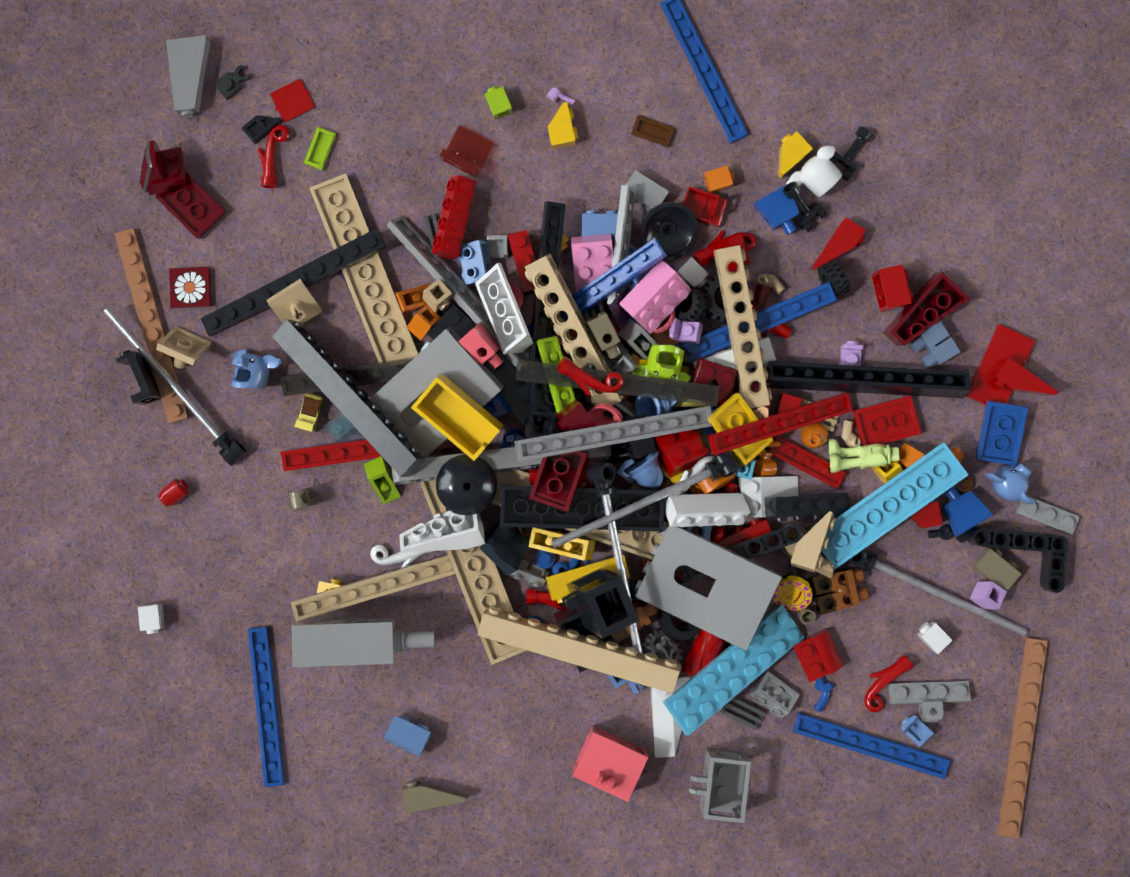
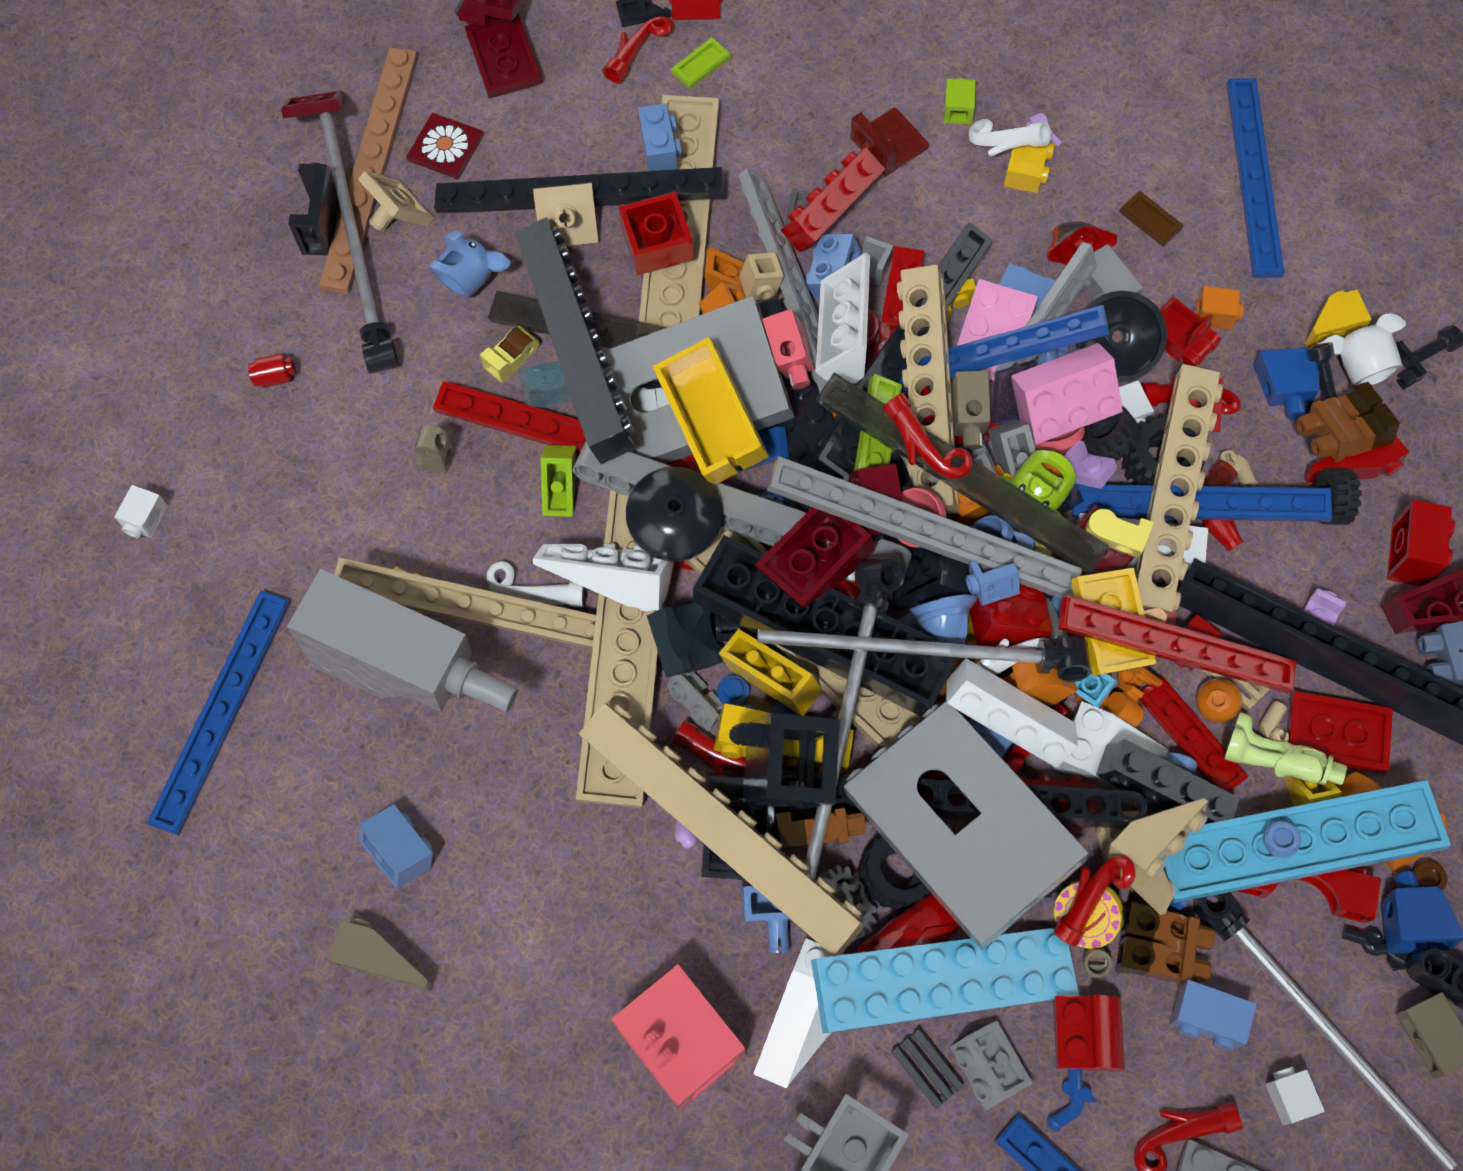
camera: 25 degrees right, 20 degrees down
(92, 302) = (313, 104): none -> dark red tile
(329, 232) = (657, 137): none -> medium blue brick
(358, 297) = (656, 233): none -> red brick
(559, 116) = (1035, 135): none -> white plant
(615, 172) = (1070, 235): none -> red hat
(667, 445) = (993, 584): none -> medium blue bracket
(722, 376) = (1119, 533): none -> light yellow leg
(786, 605) = (1089, 892): none -> red plant
(807, 484) = (1182, 761): none -> medium blue tile
(824, 231) = (1349, 424): none -> dark orange hips
(877, 616) = (1212, 1015): none -> medium blue brick
(879, 511) = (1282, 839): none -> medium blue tile
(988, 595) = (1411, 1068): lavender brick -> none

